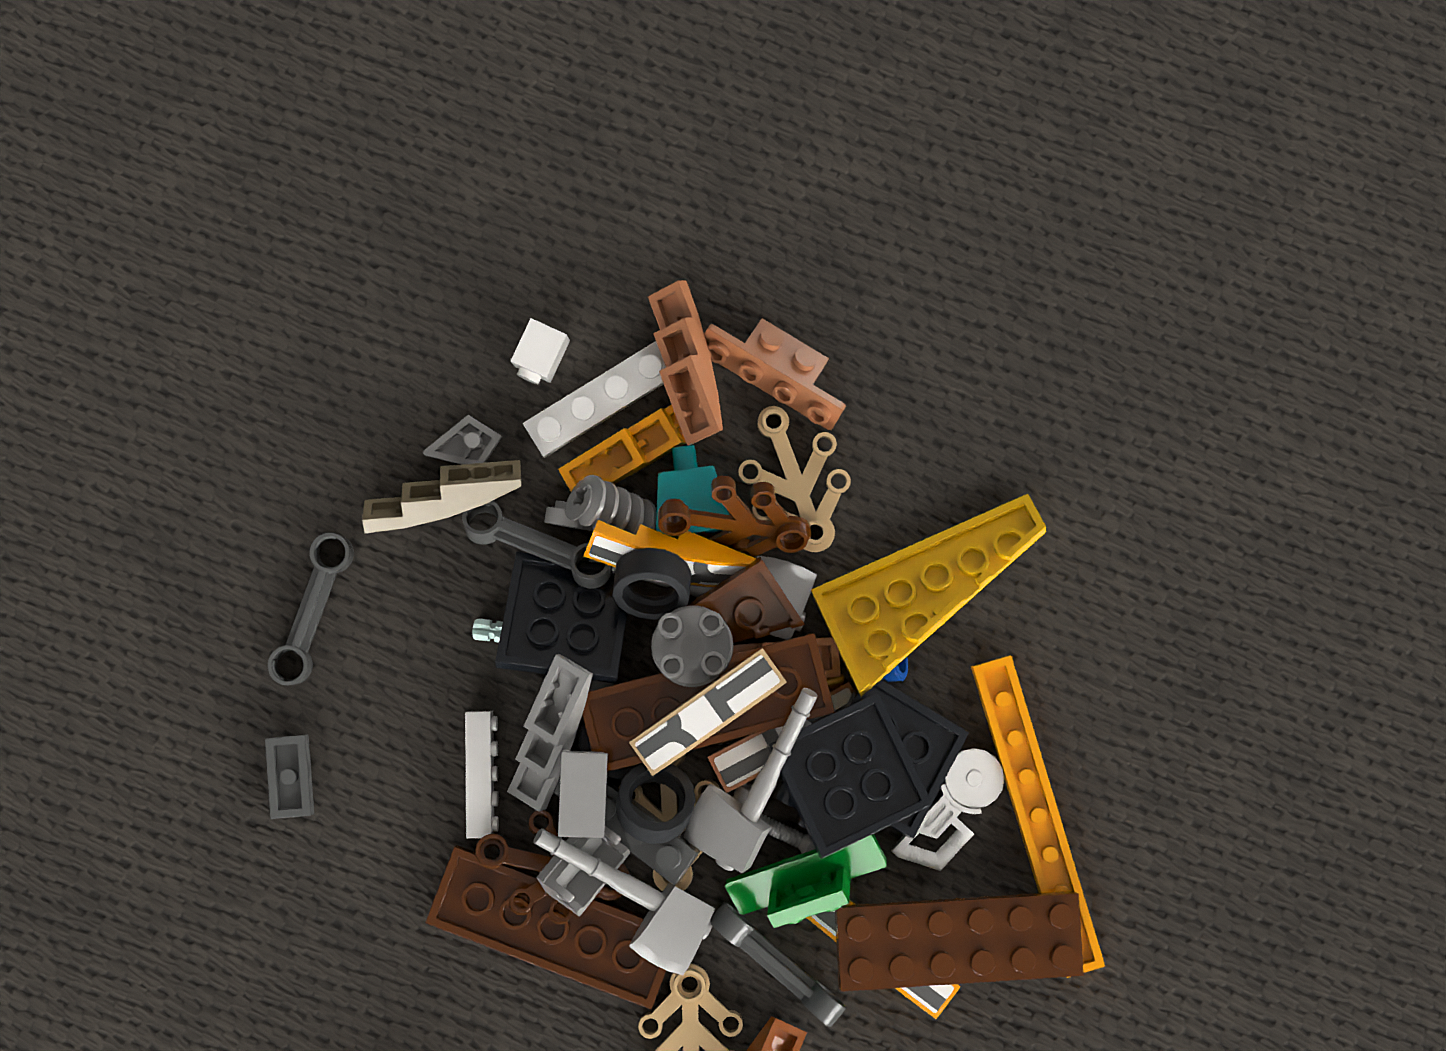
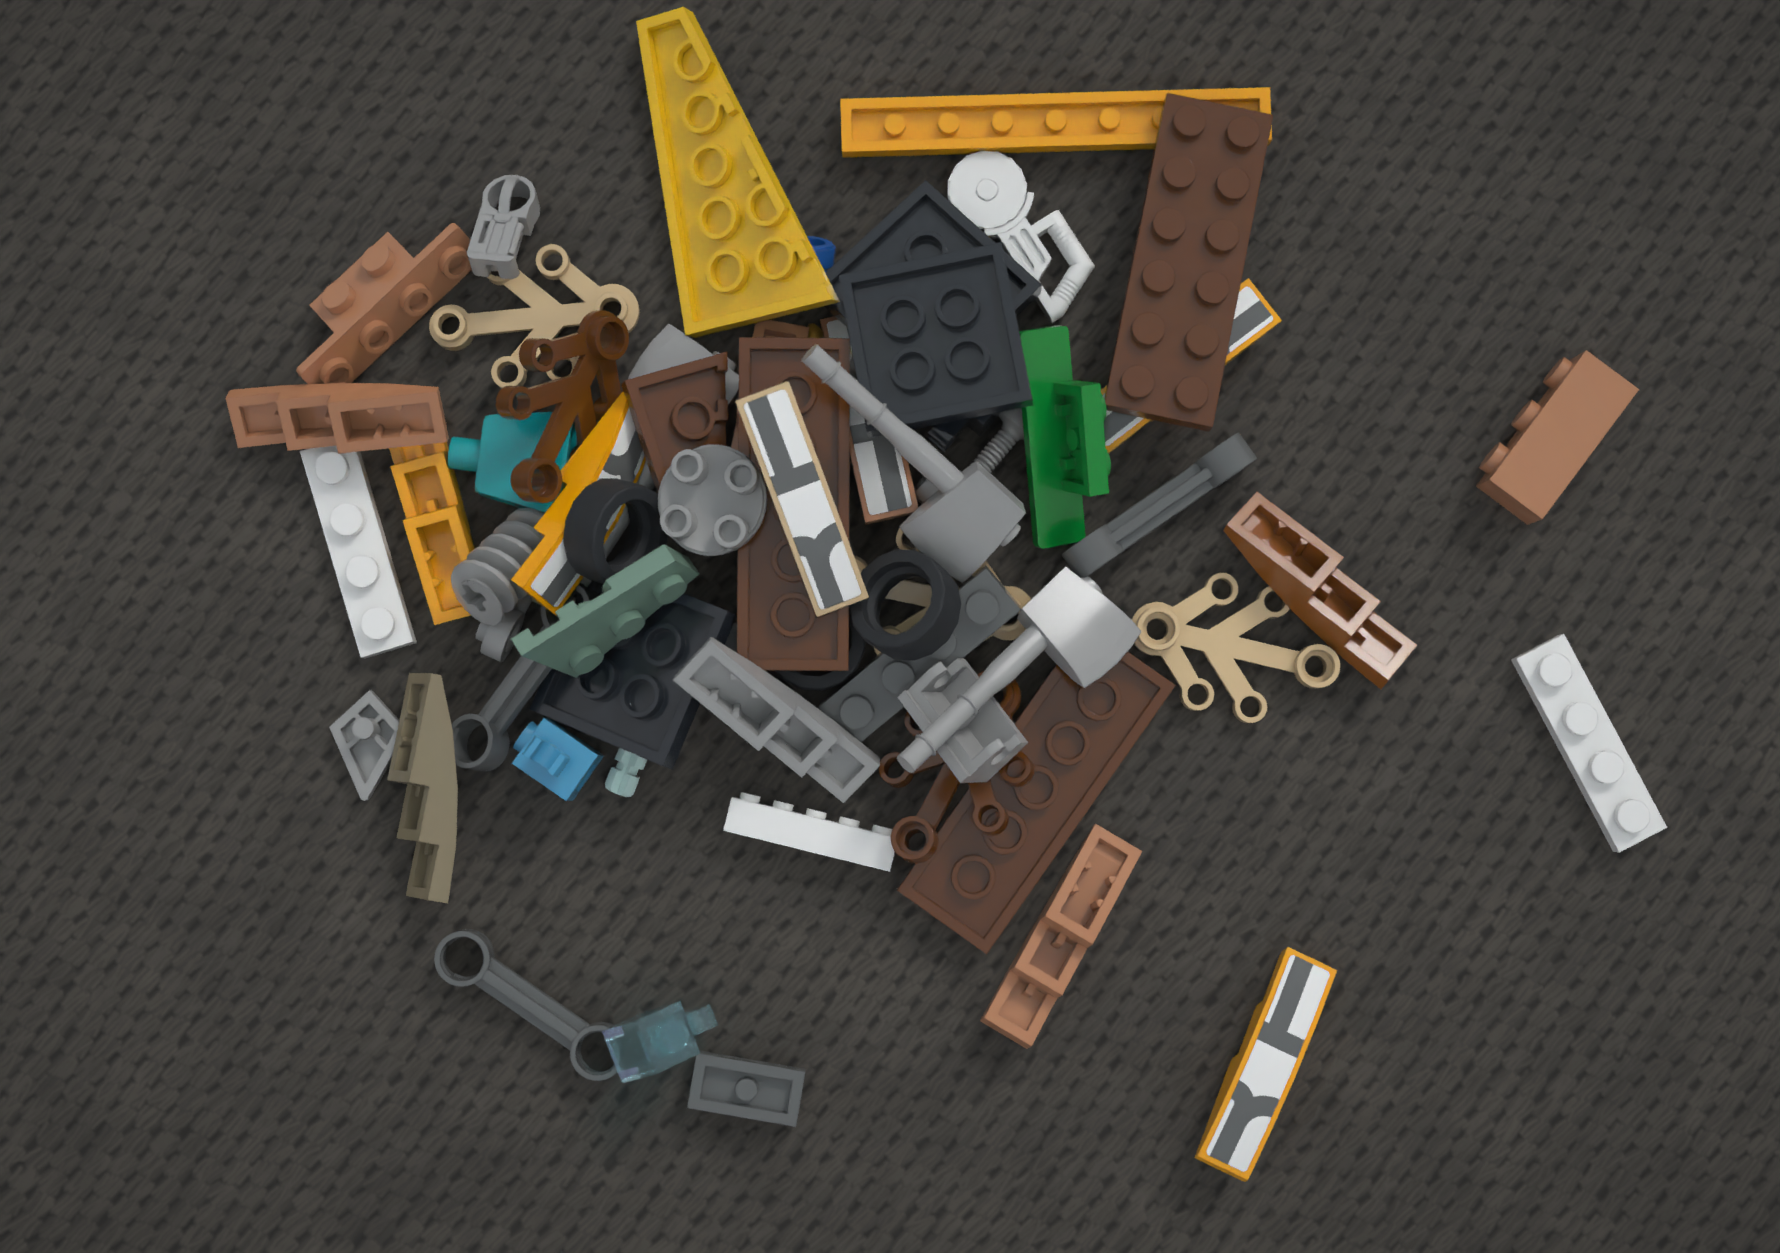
camera: 80 degrees left, 0 degrees up
(306, 705) = (656, 1039): none -> clear light blue brick
(452, 972) = (1061, 936): none -> nougat slope
(486, 580) = (555, 758): none -> dark azure brick
(539, 352) = (271, 609): white brick -> none
(582, 586) = (595, 626): none -> sand green wing
(582, 794) = (866, 692): light grey hinge -> none
(848, 440) = (500, 231): none -> light grey piece

